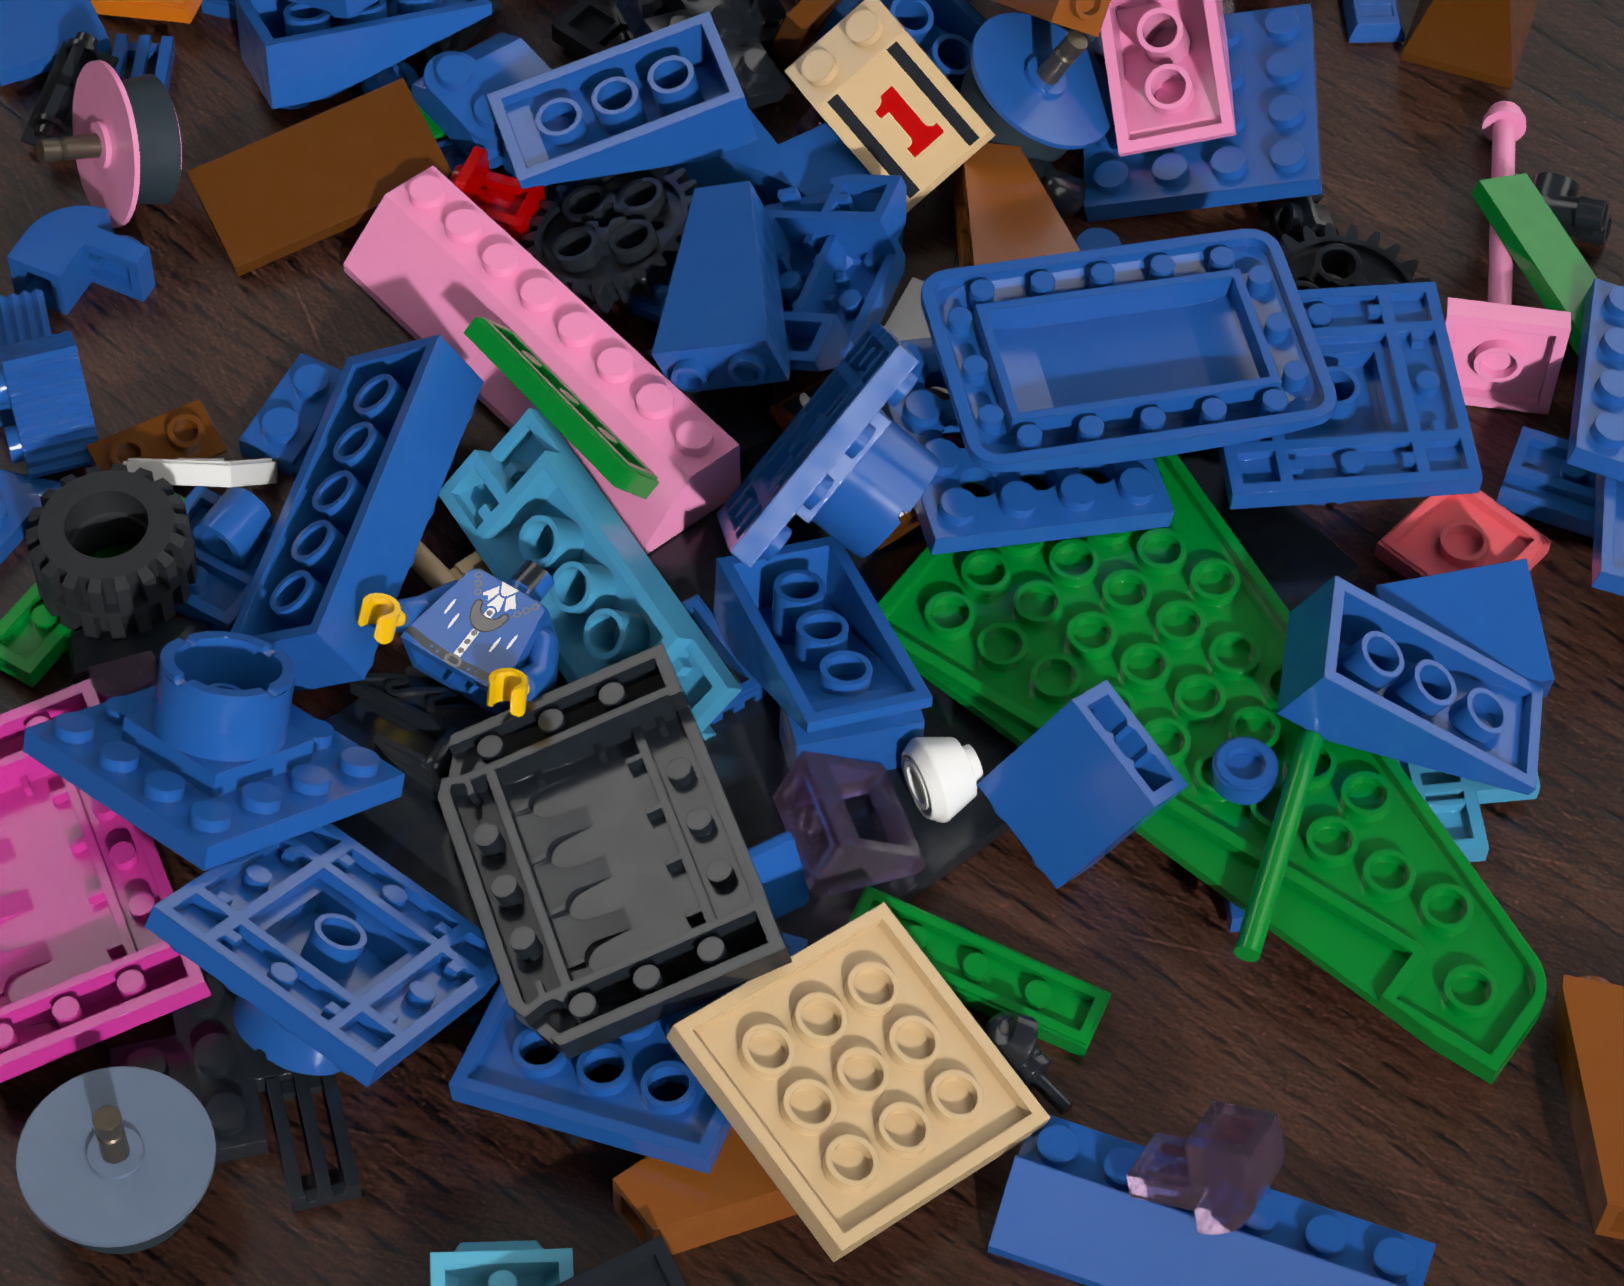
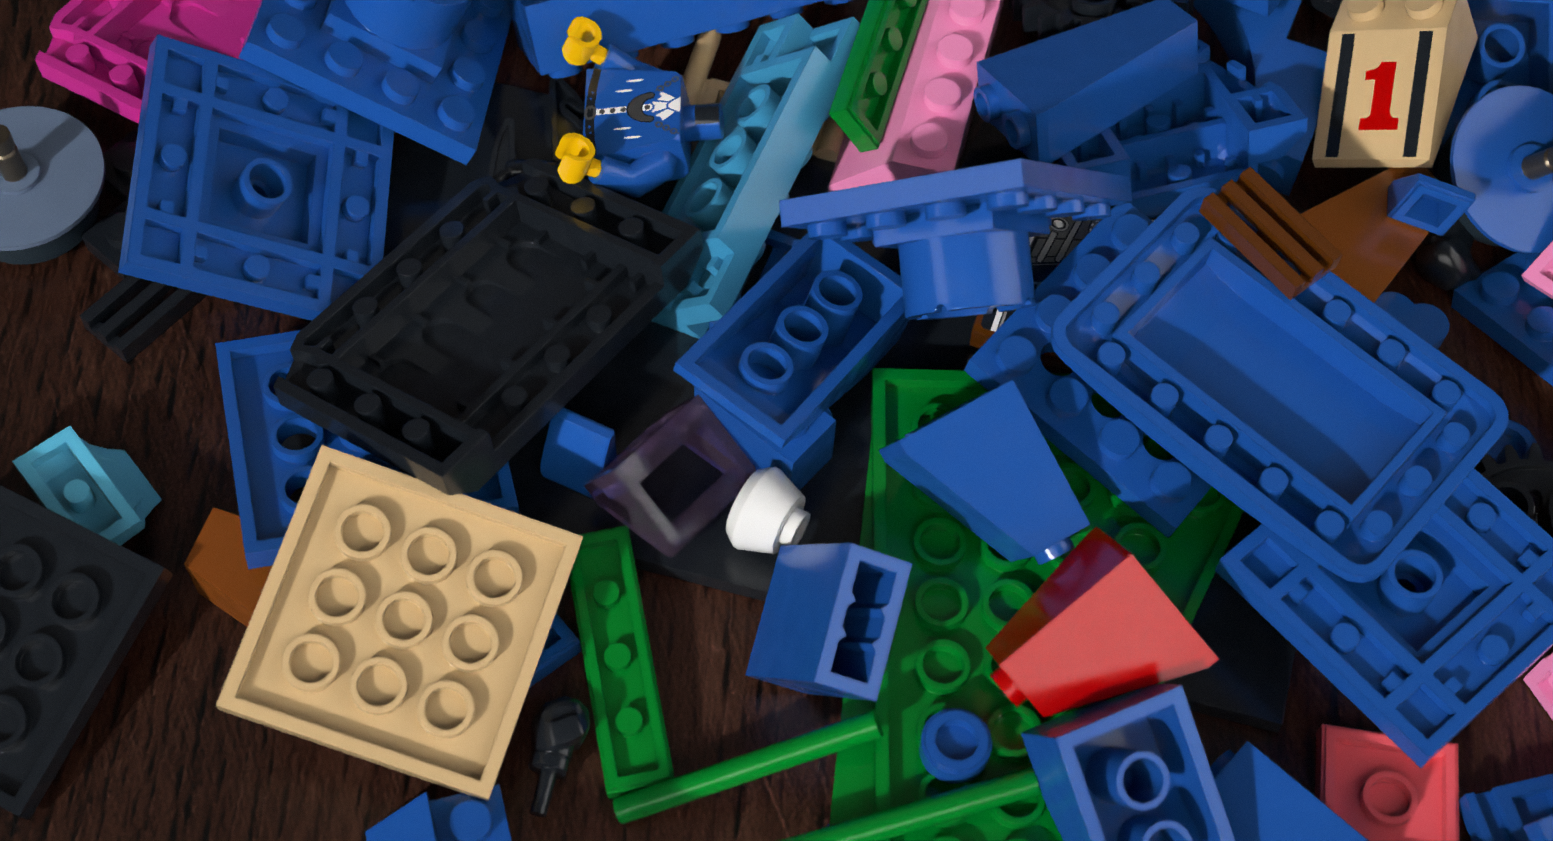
camera: 55 degrees right, 5 degrees up
(1007, 256) = (1277, 227): none -> reddish brown tile
(1023, 161) = (1427, 202): none -> blue slope
(1041, 588) = (993, 475): none -> blue slope
(1148, 928) = (748, 767): none -> green bar
(1230, 609) = (1094, 633): none -> slope

